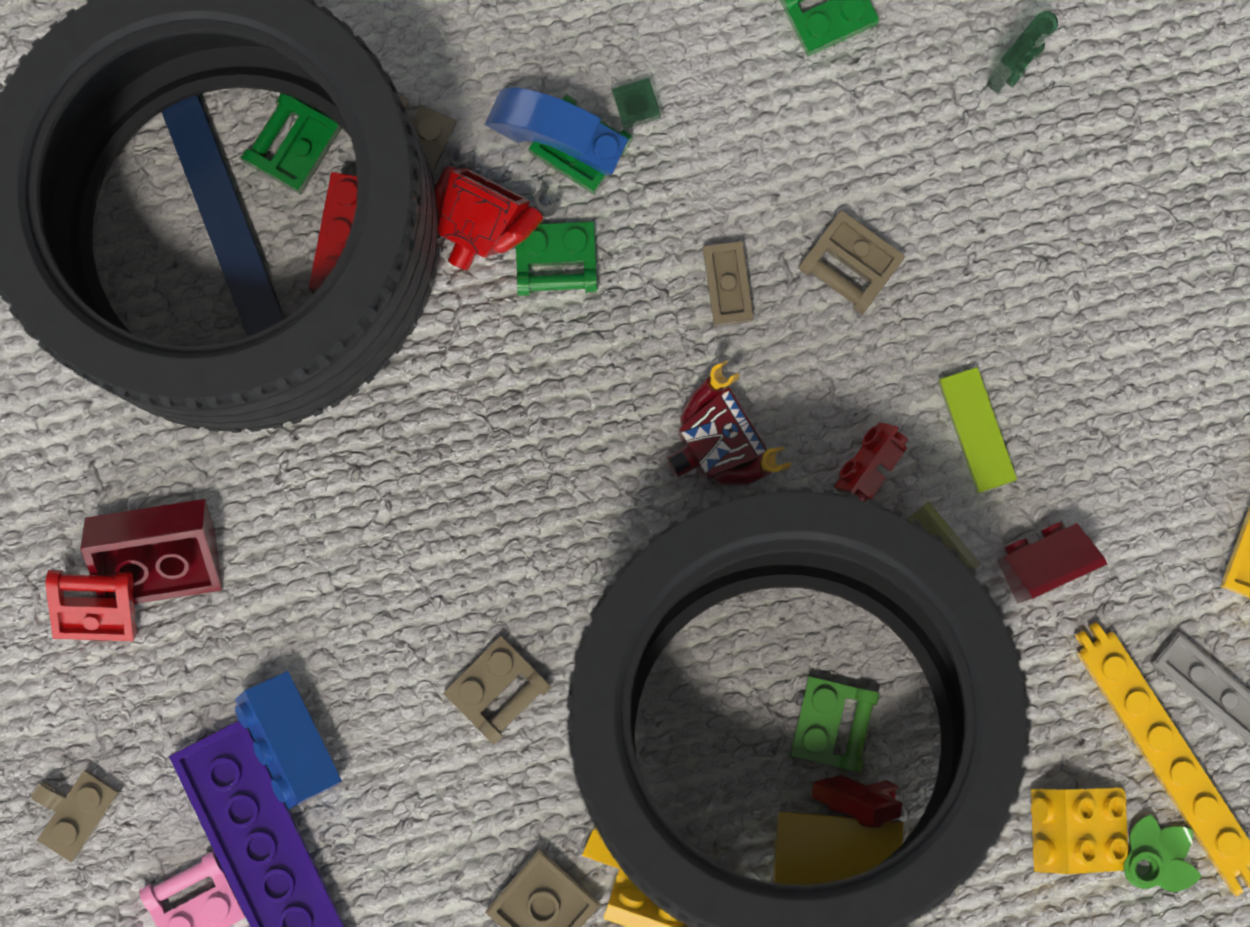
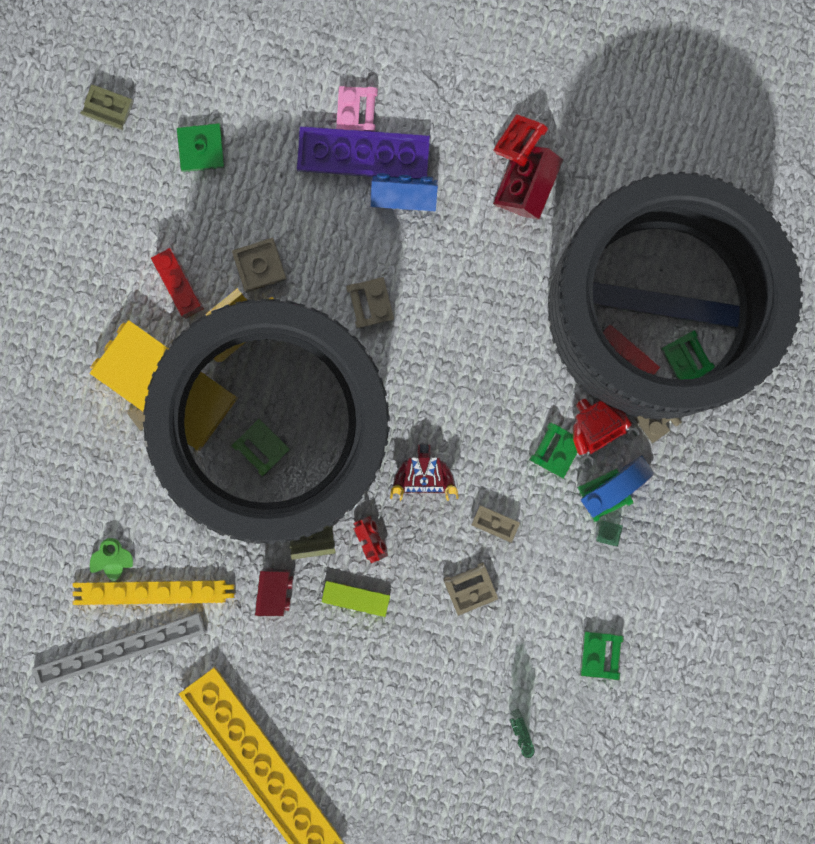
camera: 115 degrees right, 5 degrees up
(75, 814) = (430, 80): dark tan plate -> none
(869, 803) = (214, 439): red hinge -> none
(1079, 830) = (145, 529): yellow bracket -> none

